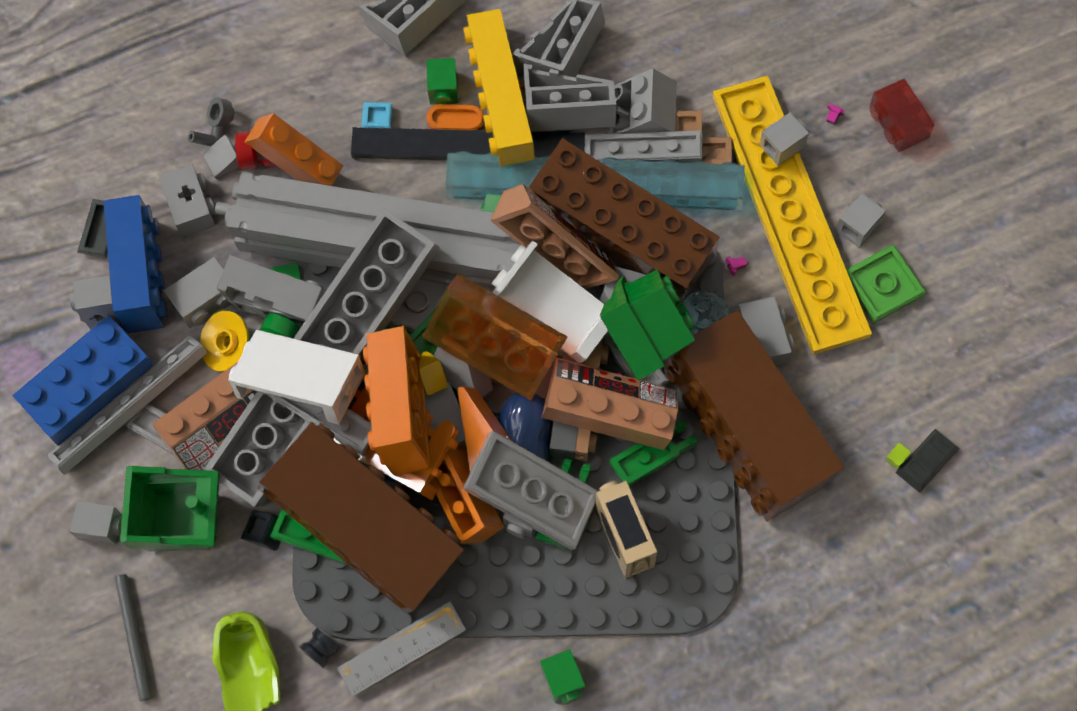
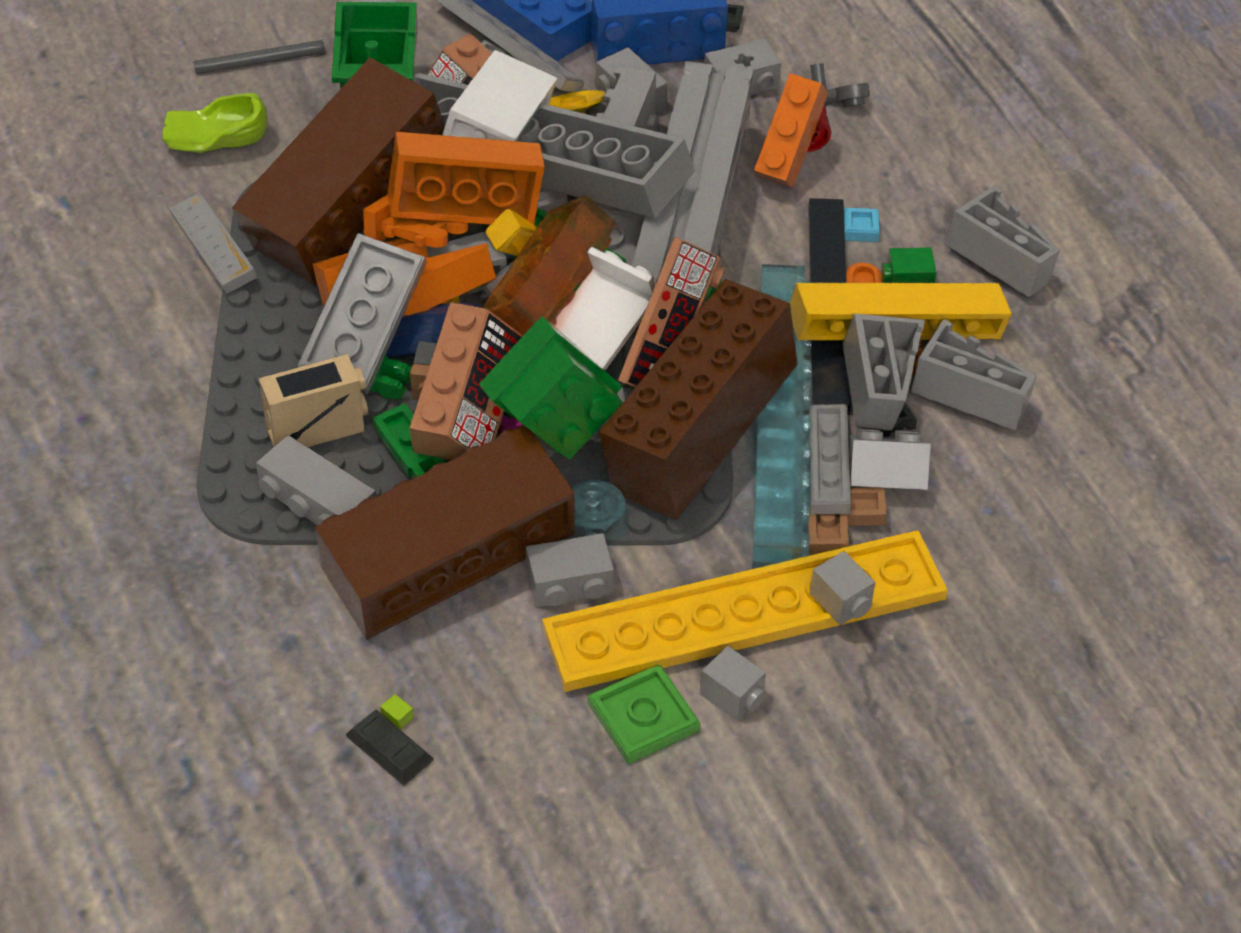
camera: 85 degrees right, 20 degrees down
(319, 648) = (223, 181): black wheel -> none
(563, 677) = (158, 371): green brick -> none
(704, 525) = (308, 482): none -> light grey brick
(735, 264) = (671, 555): dark pink piece -> none
(834, 113) = (901, 673): dark pink piece -> none
(901, 115) = (899, 741): clear red brick -> none

